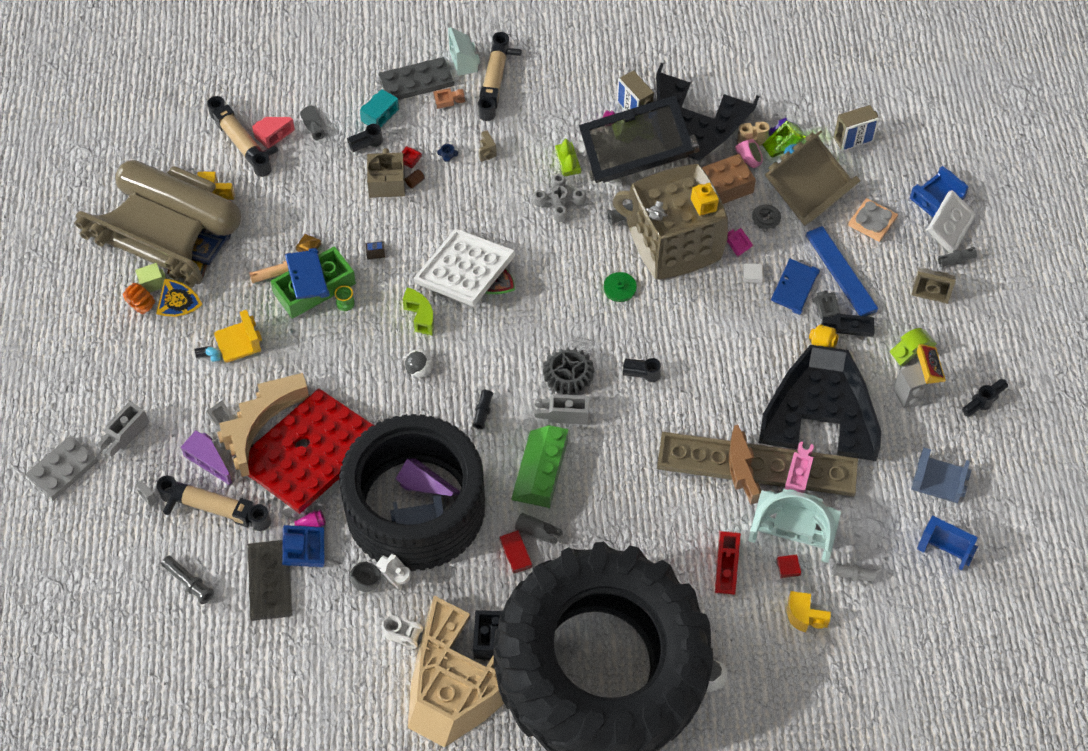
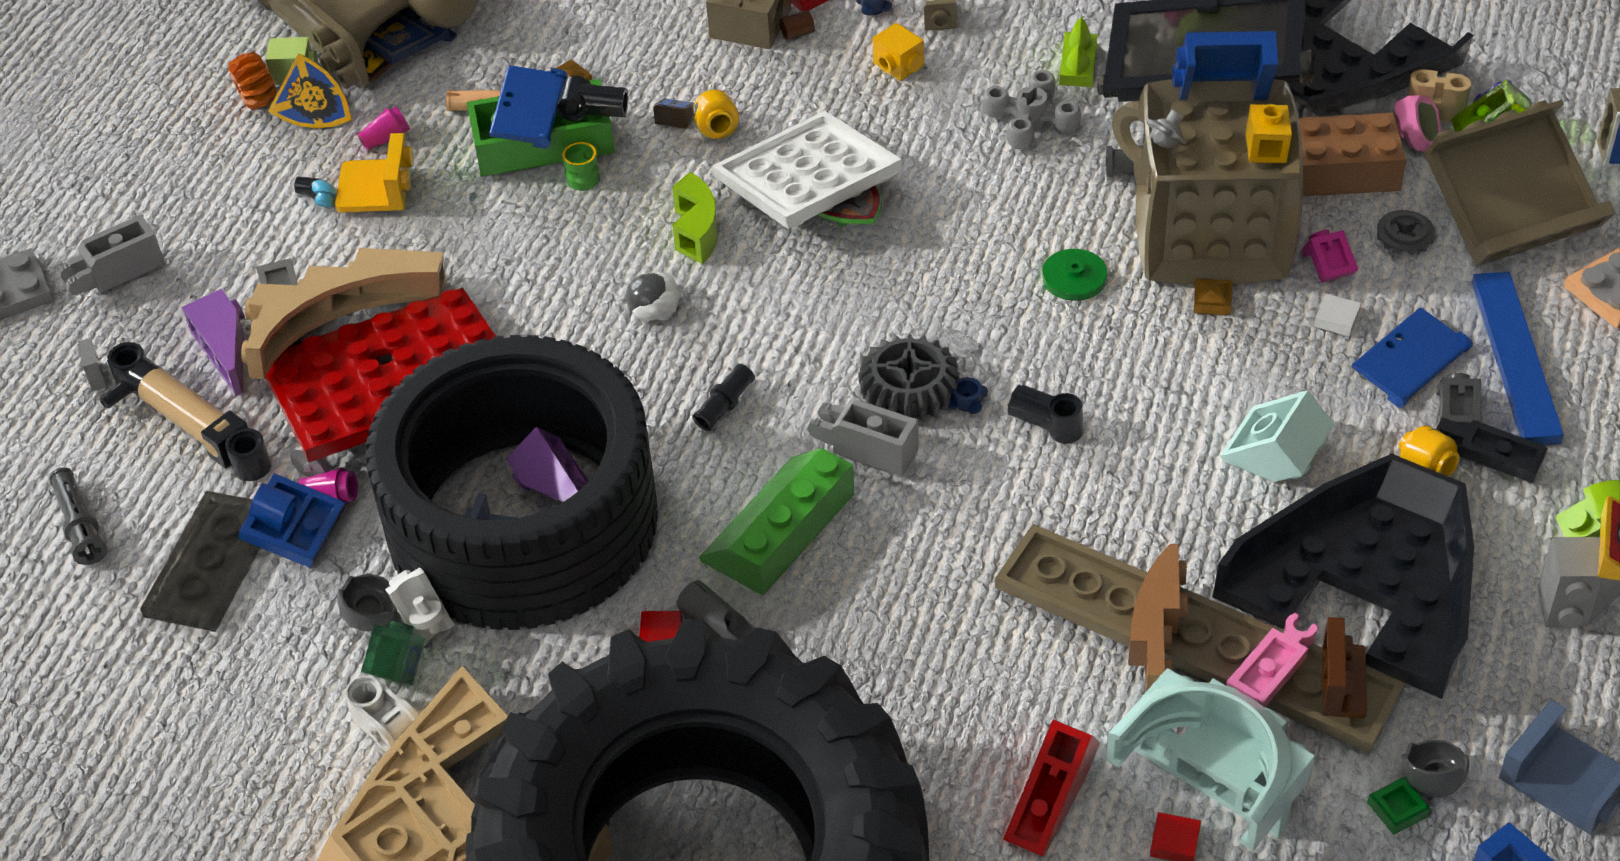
camera: 25 degrees right, 10 degrees down
(226, 304) = (380, 128): none -> dark pink cone
(335, 263) = (582, 98): none -> black piece
(394, 599) = (393, 652): none -> clear green brick
(399, 246) = (715, 114): none -> yellow head
(476, 181) = (898, 51): none -> yellow brick
(602, 367) = (968, 395): none -> dark blue plate
(686, 160) = (1227, 58): none -> blue panel
(691, 280) = (1212, 296): none -> pearl gold tile
(753, 349) = (1280, 437): none -> light aqua slope
(832, 464) = (1343, 673): none -> reddish brown bracket
(875, 517) = (1398, 805): none -> green tile
(885, 495) = (1435, 767): none -> dark grey hair

